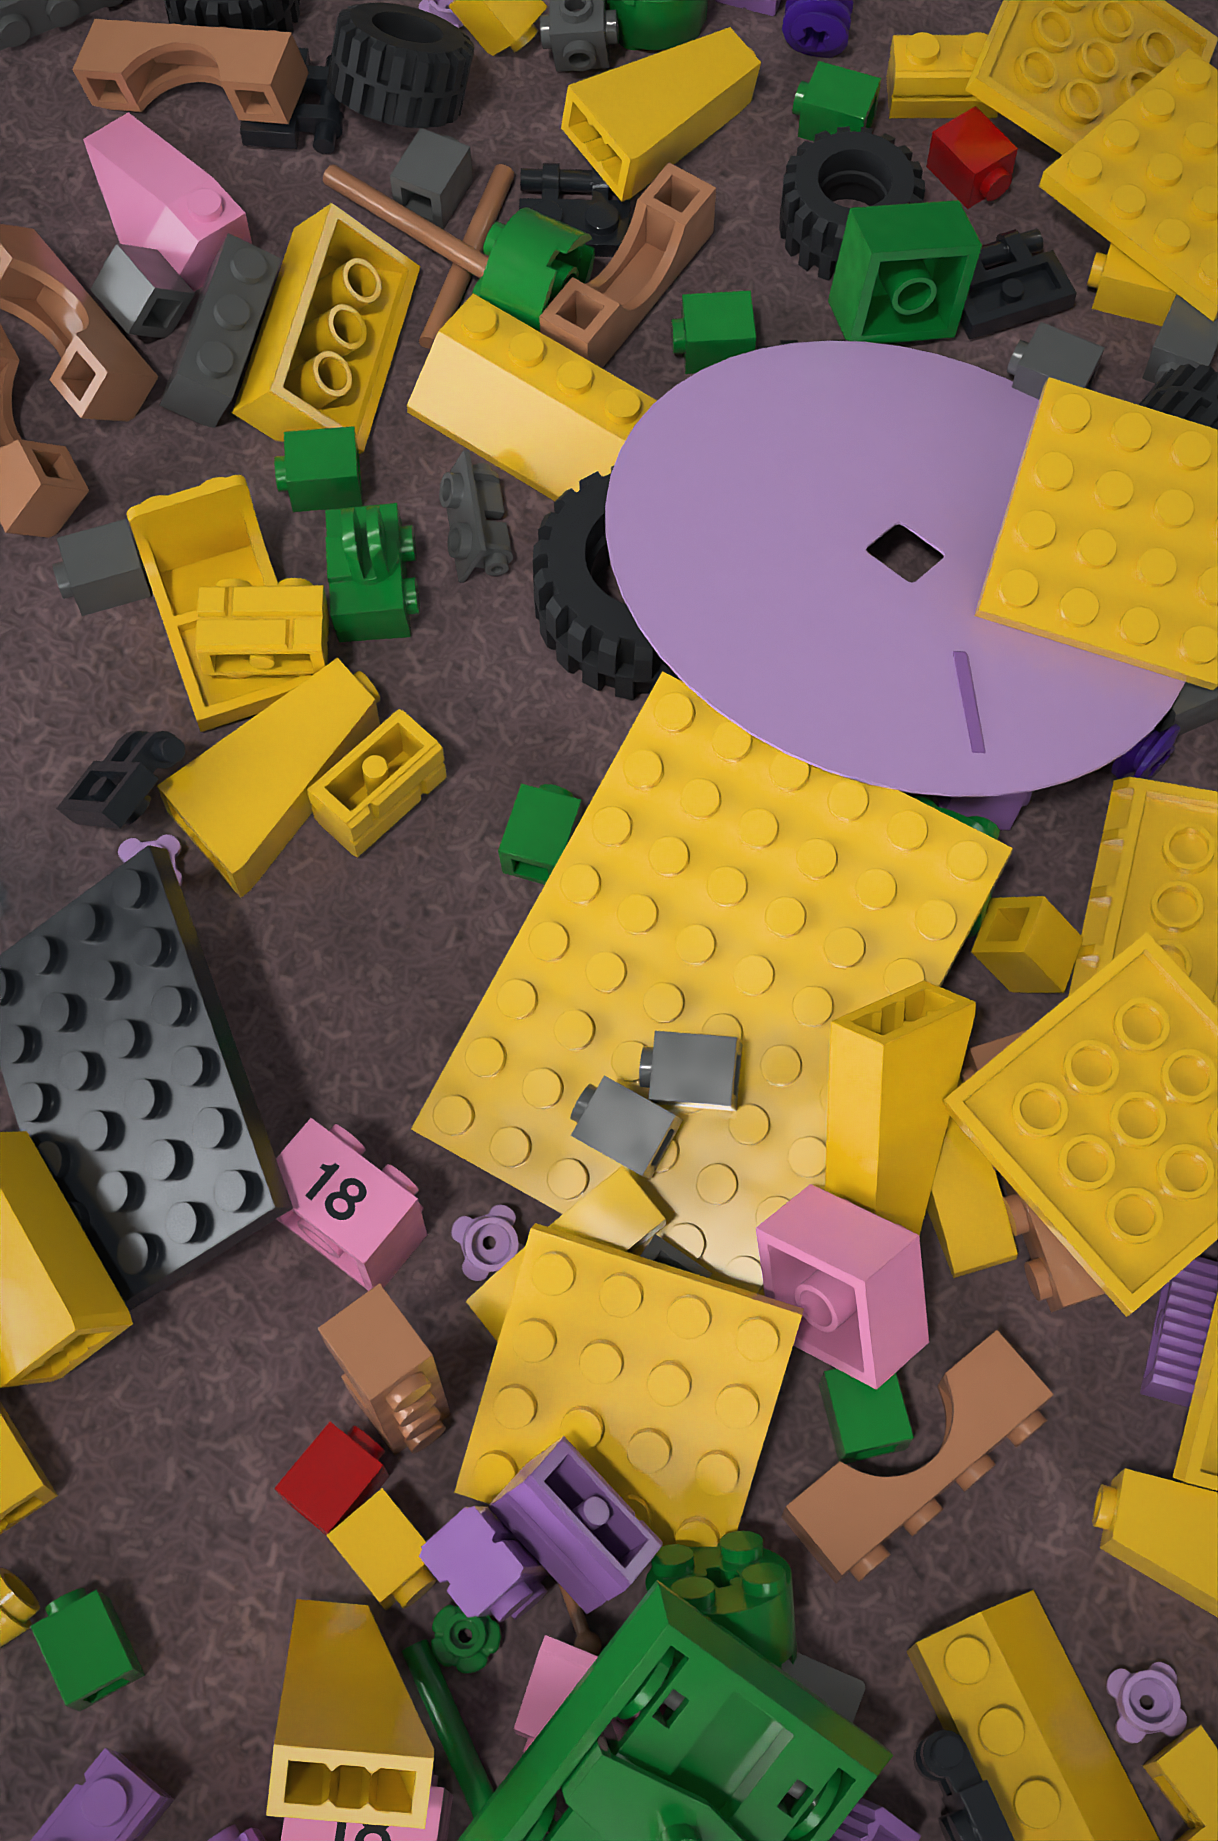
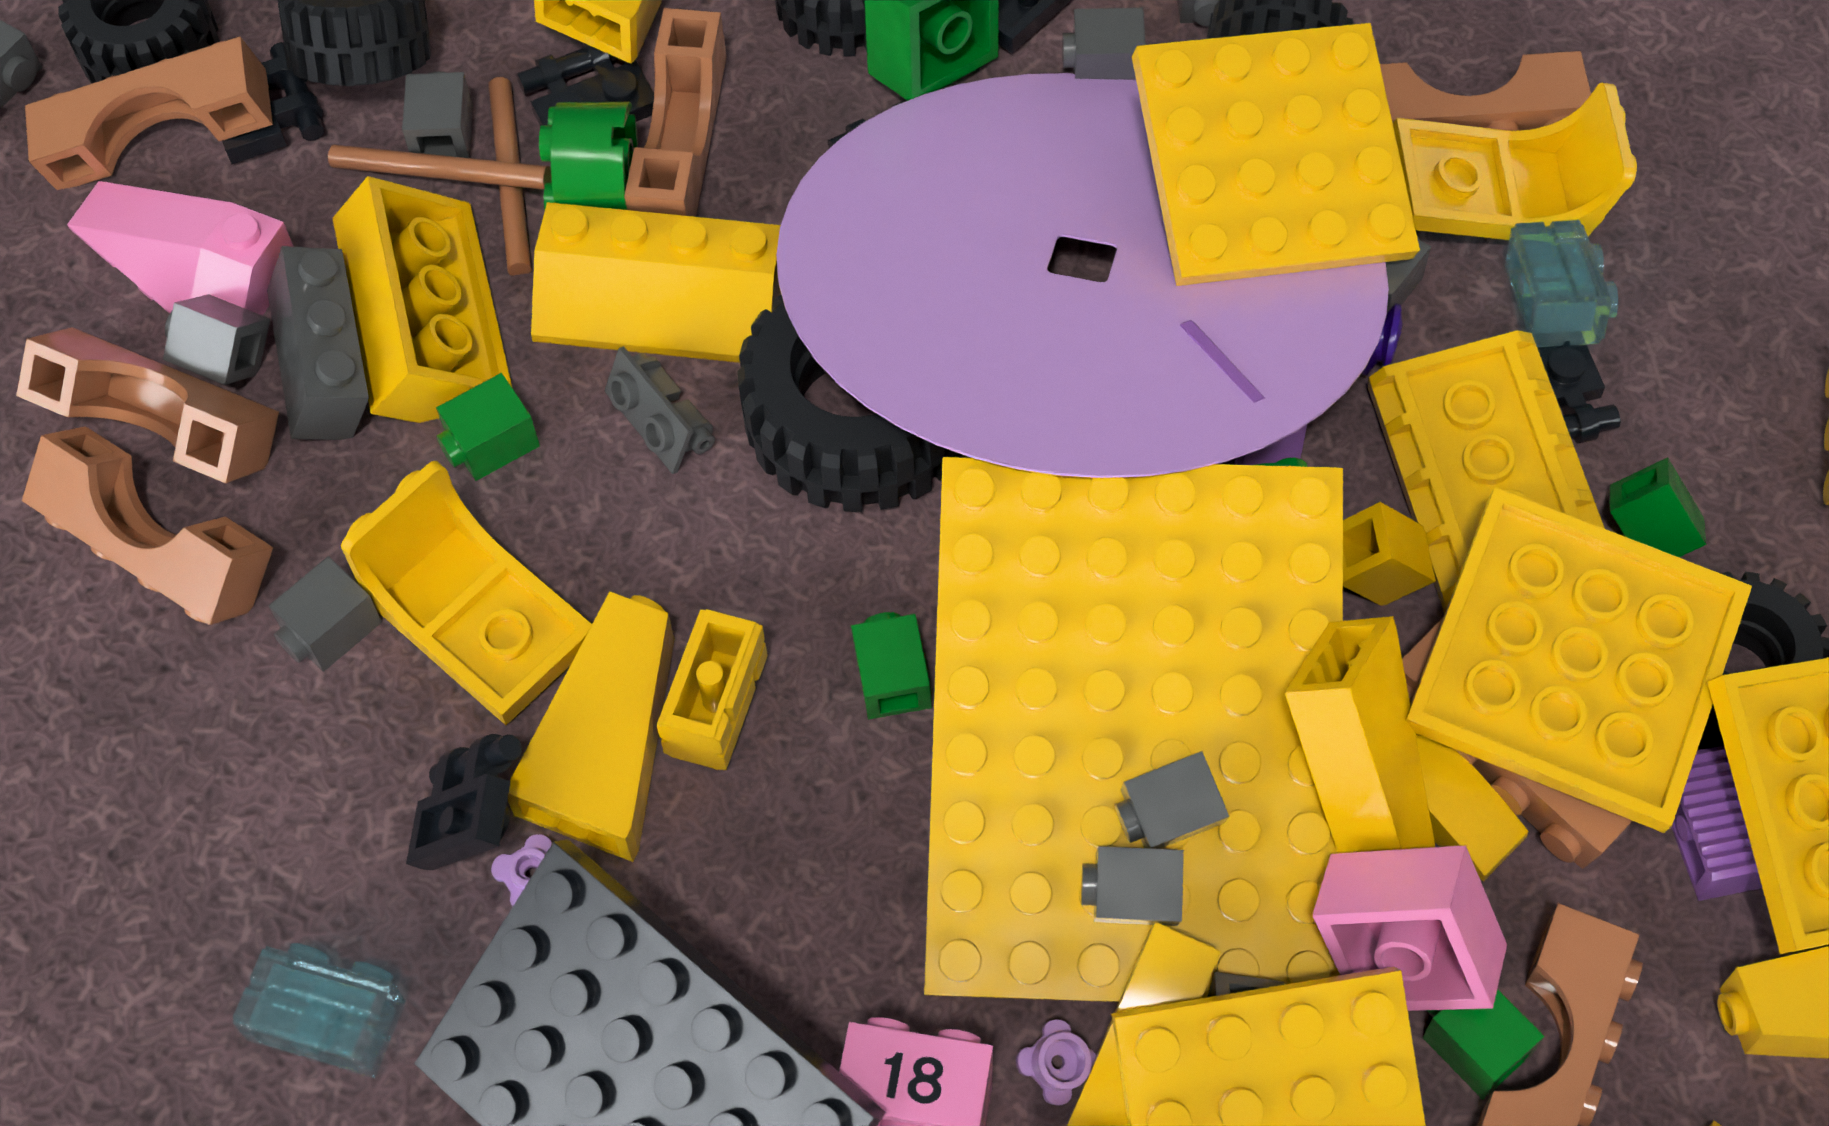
camera: 25 degrees left, 5 degrees down
(262, 628) = (524, 596): yellow brick -> none
(369, 572) = (589, 501): green brick -> none
(713, 328) = (783, 142): green brick -> none

